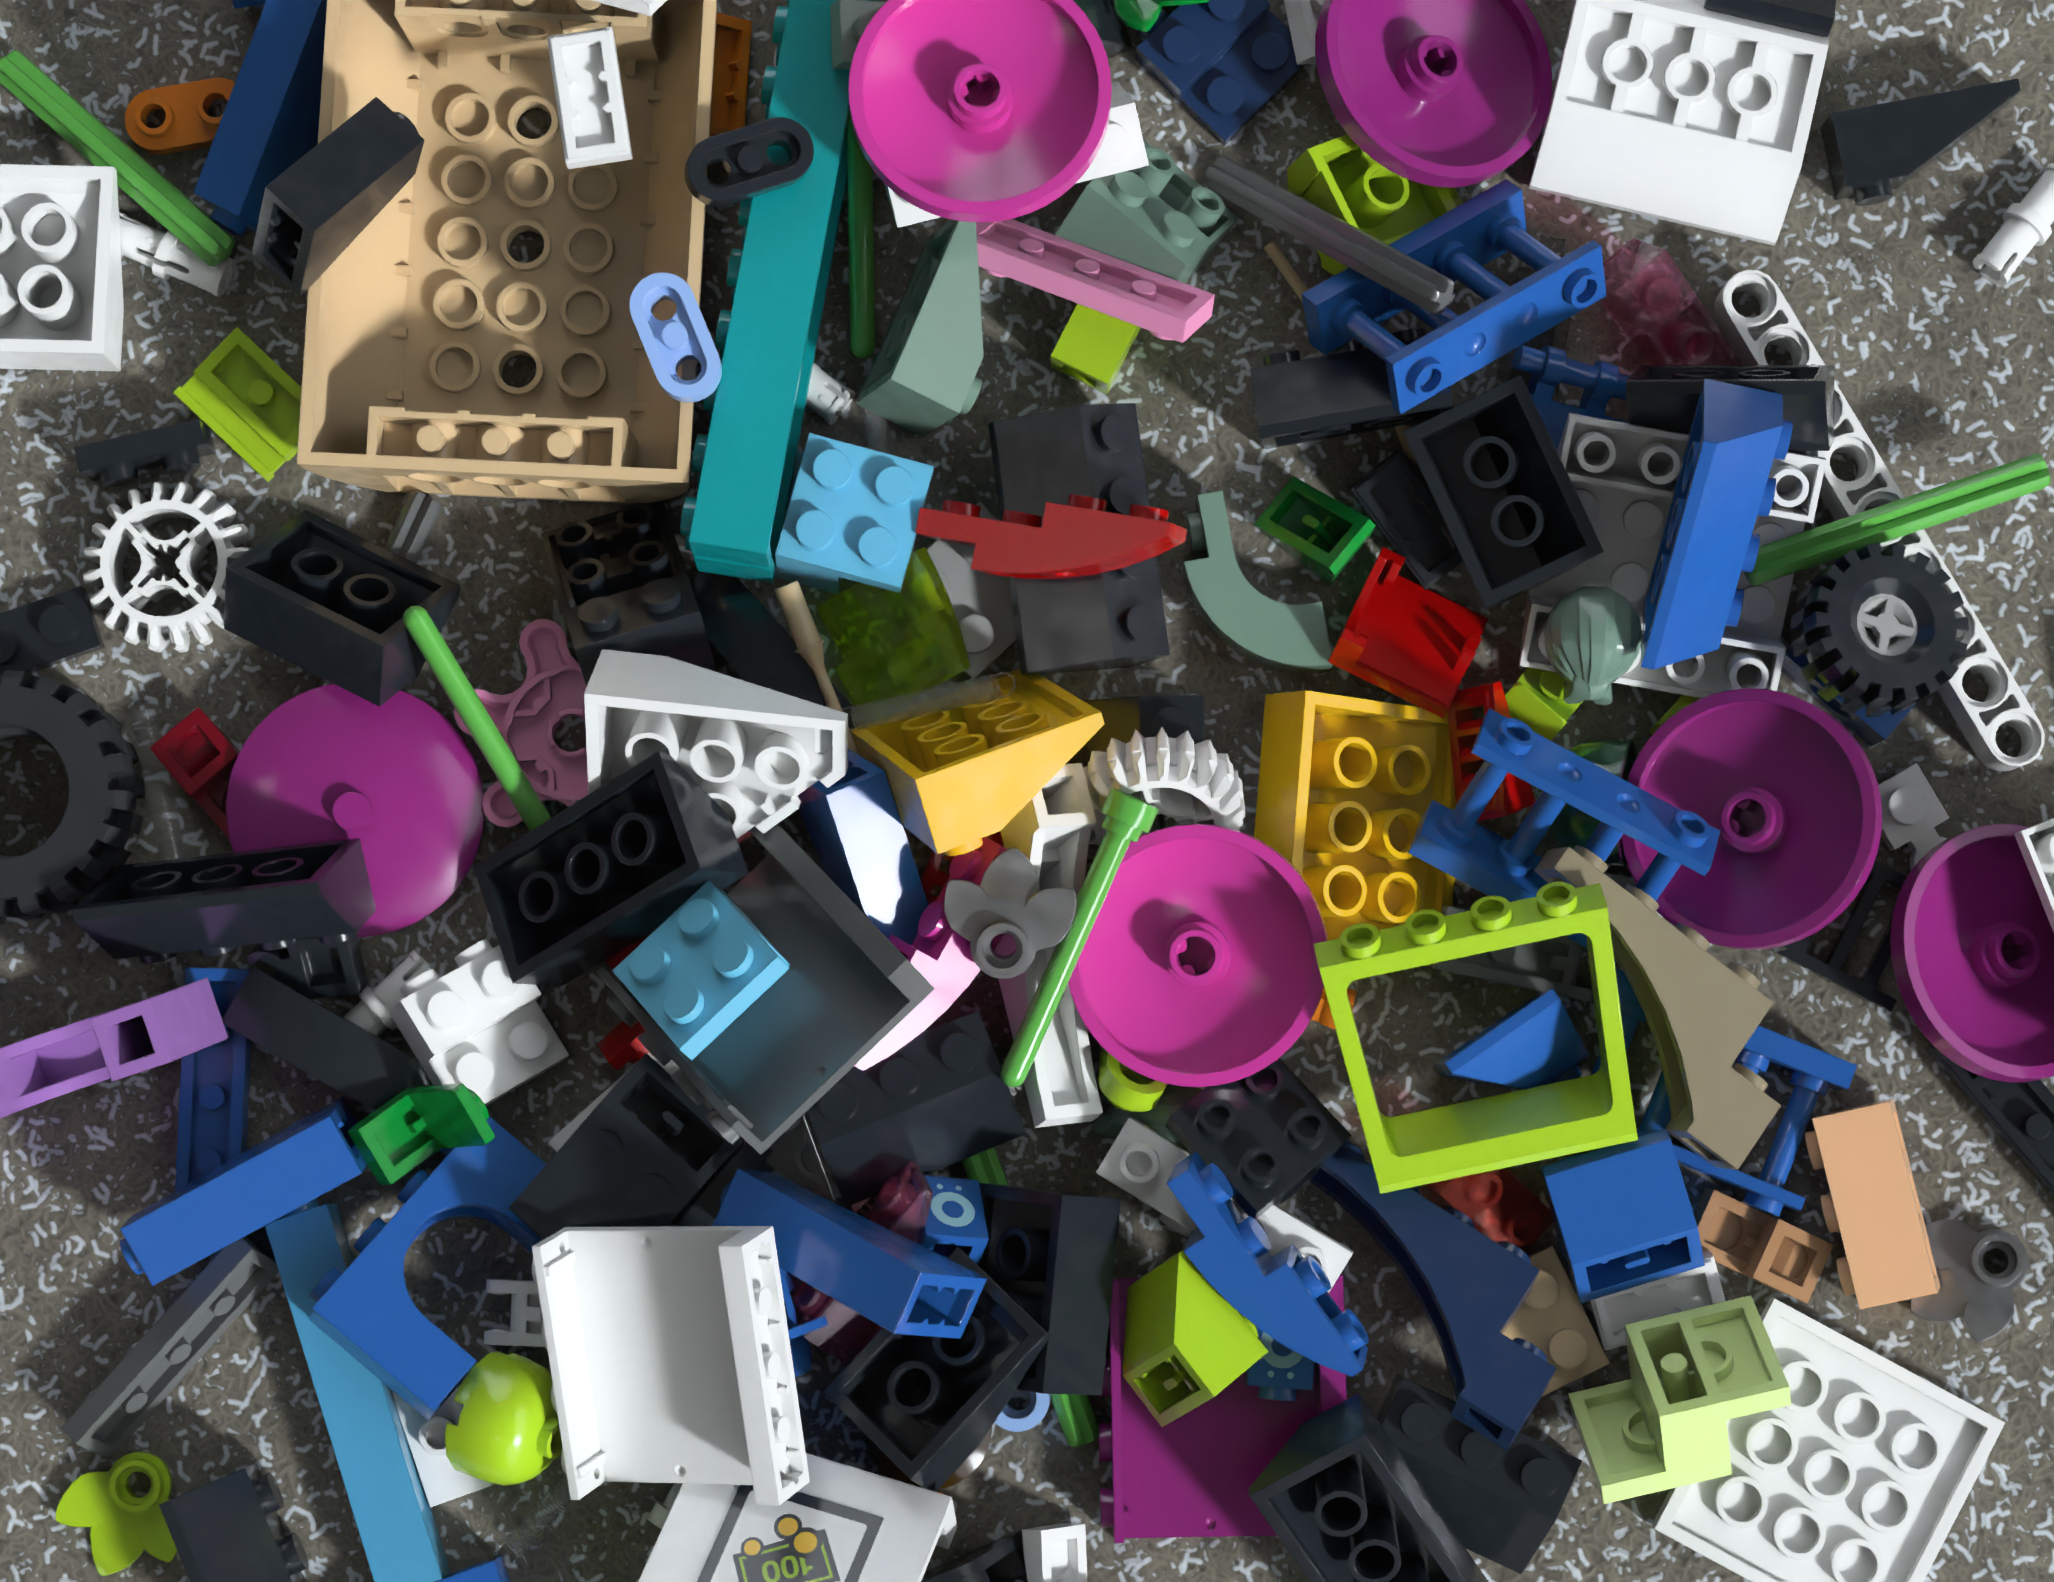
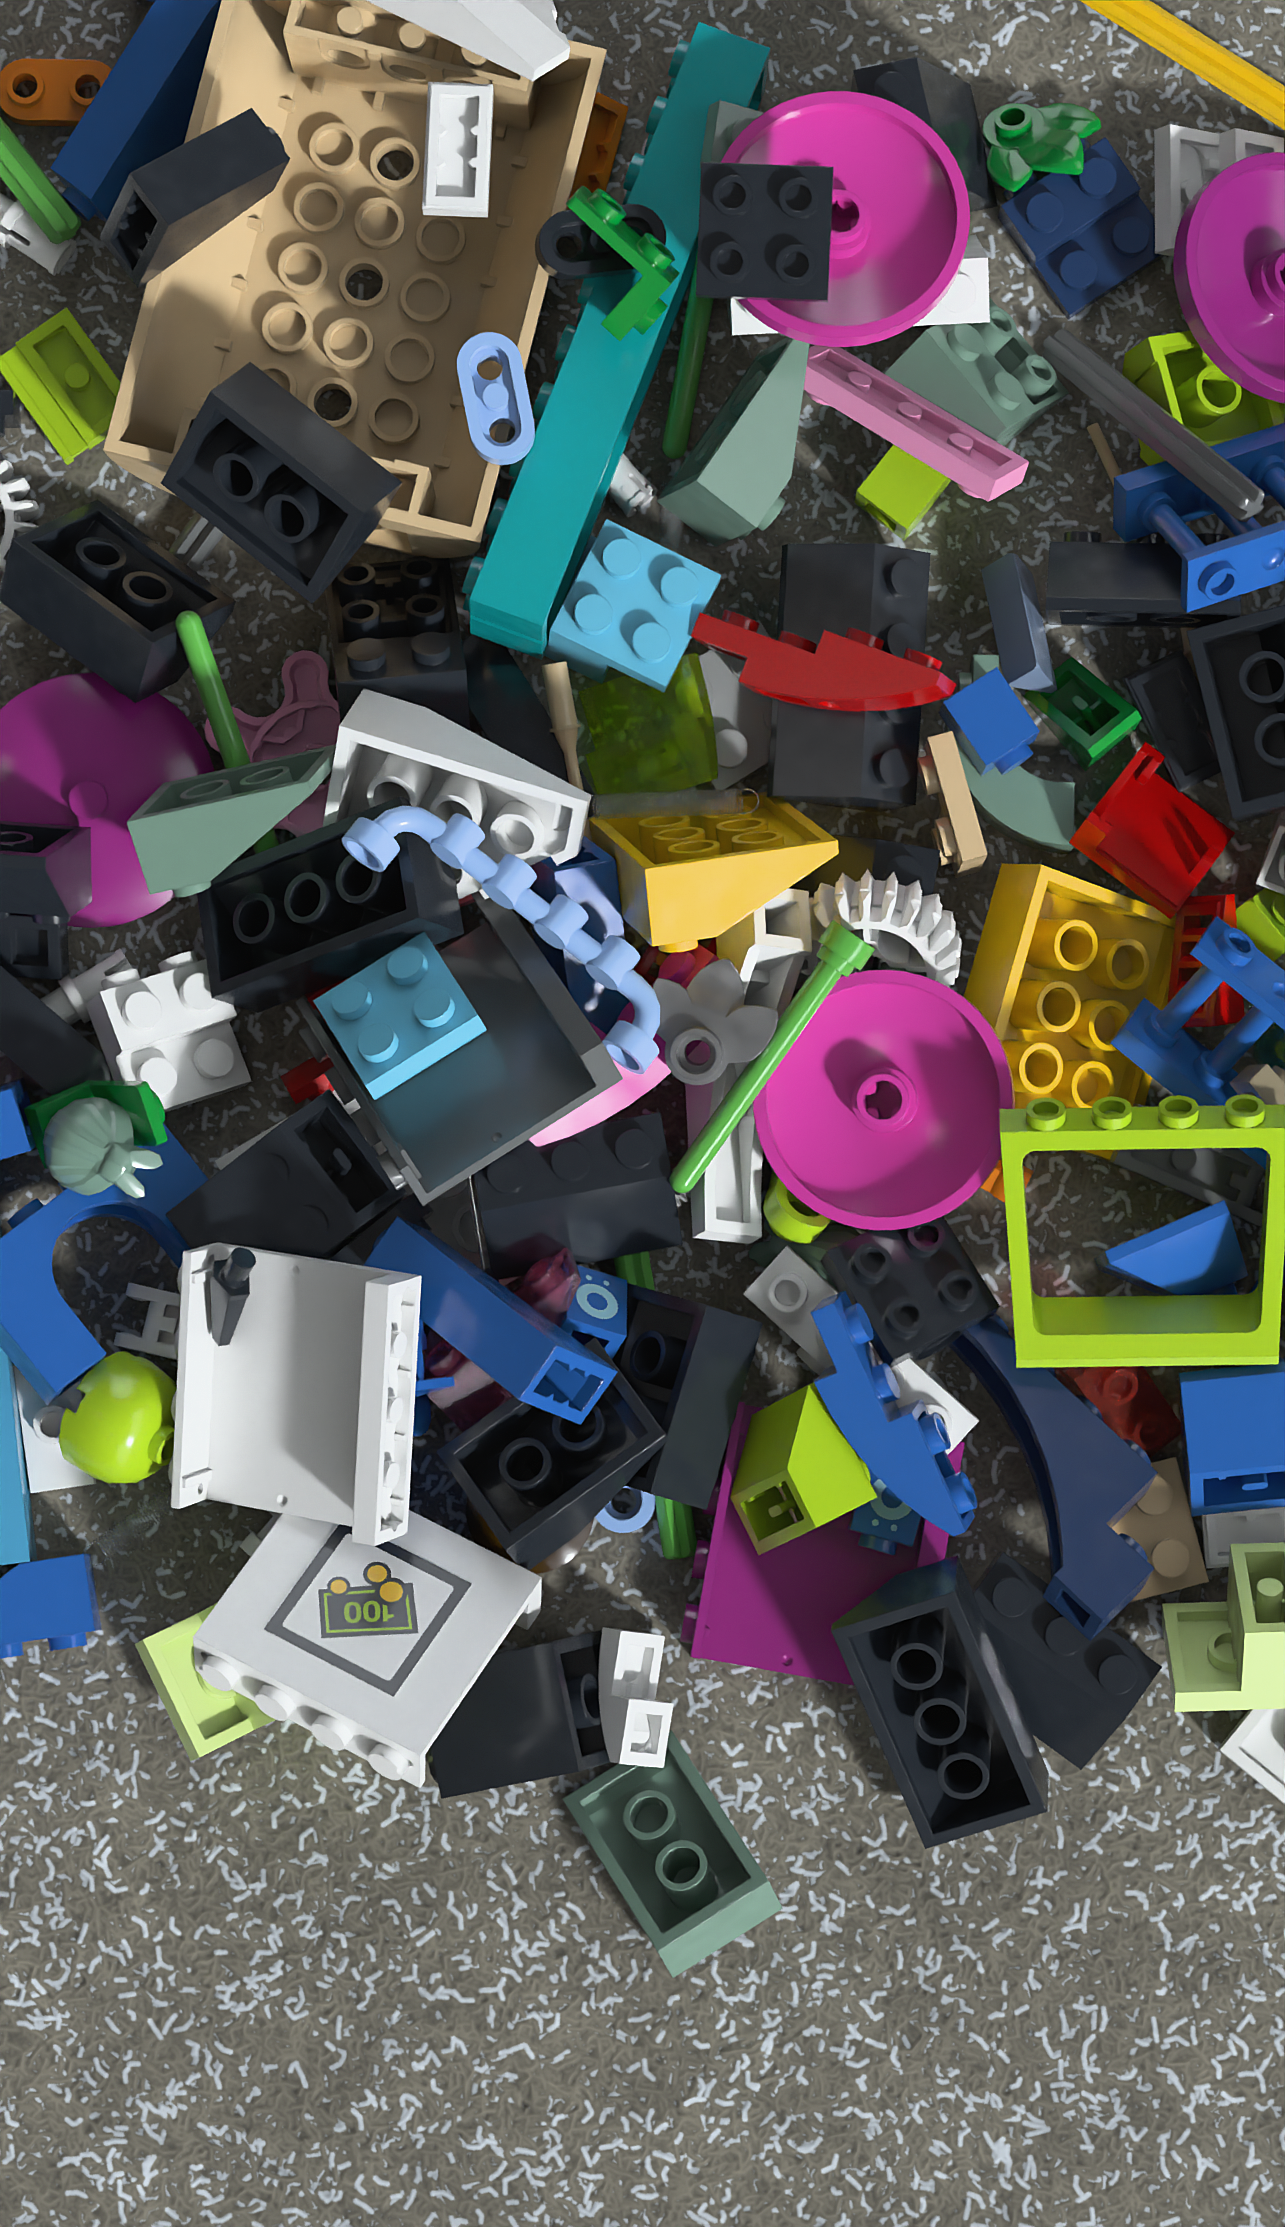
camera: 10 degrees right, 0 degrees up
(423, 1160) = (93, 1148): none -> sand green piece
(476, 808) = (208, 820): none -> sand green slope
(477, 461) = (280, 481): none -> black slope
(586, 1277) = (229, 1293): none -> black bar
(785, 819) = (509, 886): none -> light blue bar
(796, 166) = (646, 254): none -> green bracket
(909, 121) = (764, 232): none -> black plate
(1215, 671) = (957, 829): none -> tan plate
(1228, 561) = (990, 724): none -> blue brick
(1235, 456) = (1018, 625): none -> sand blue slope

